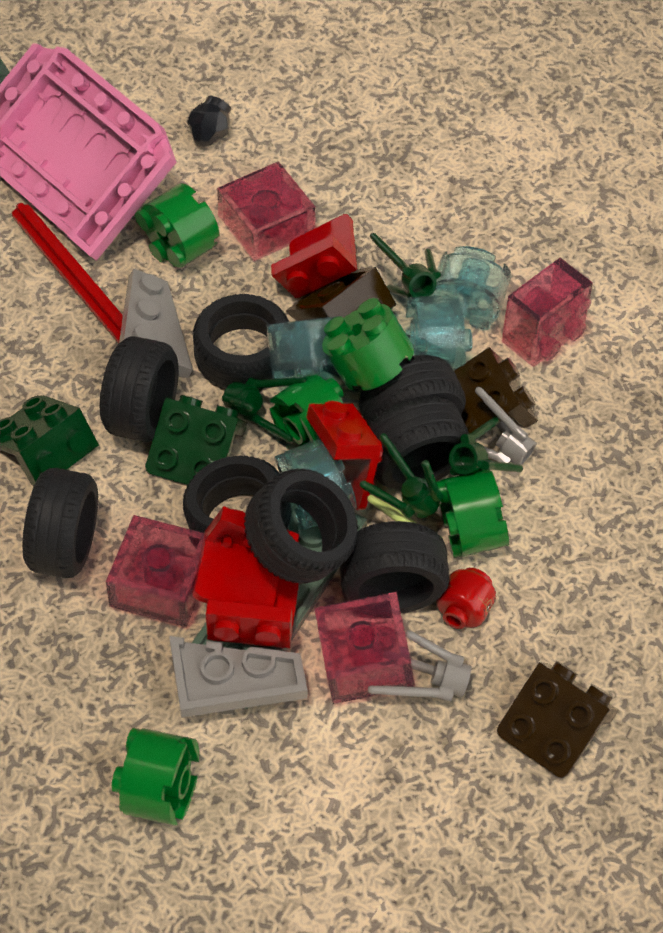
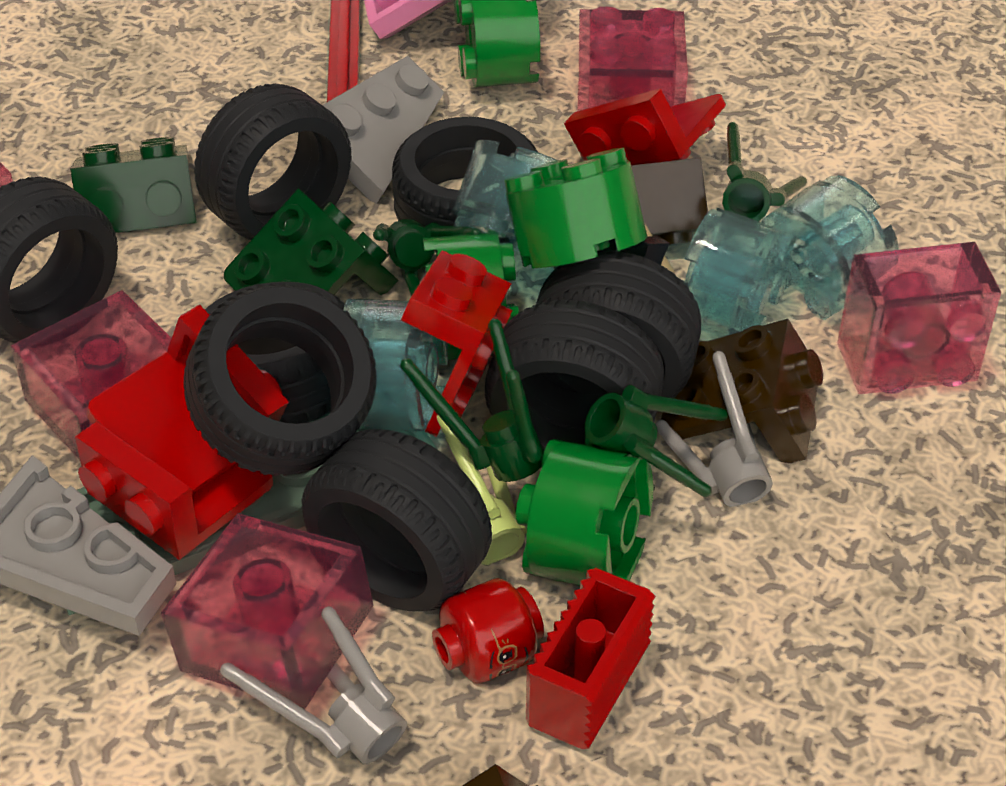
camera: 35 degrees right, 10 degrees down
(530, 586) = (588, 658): none -> red brick

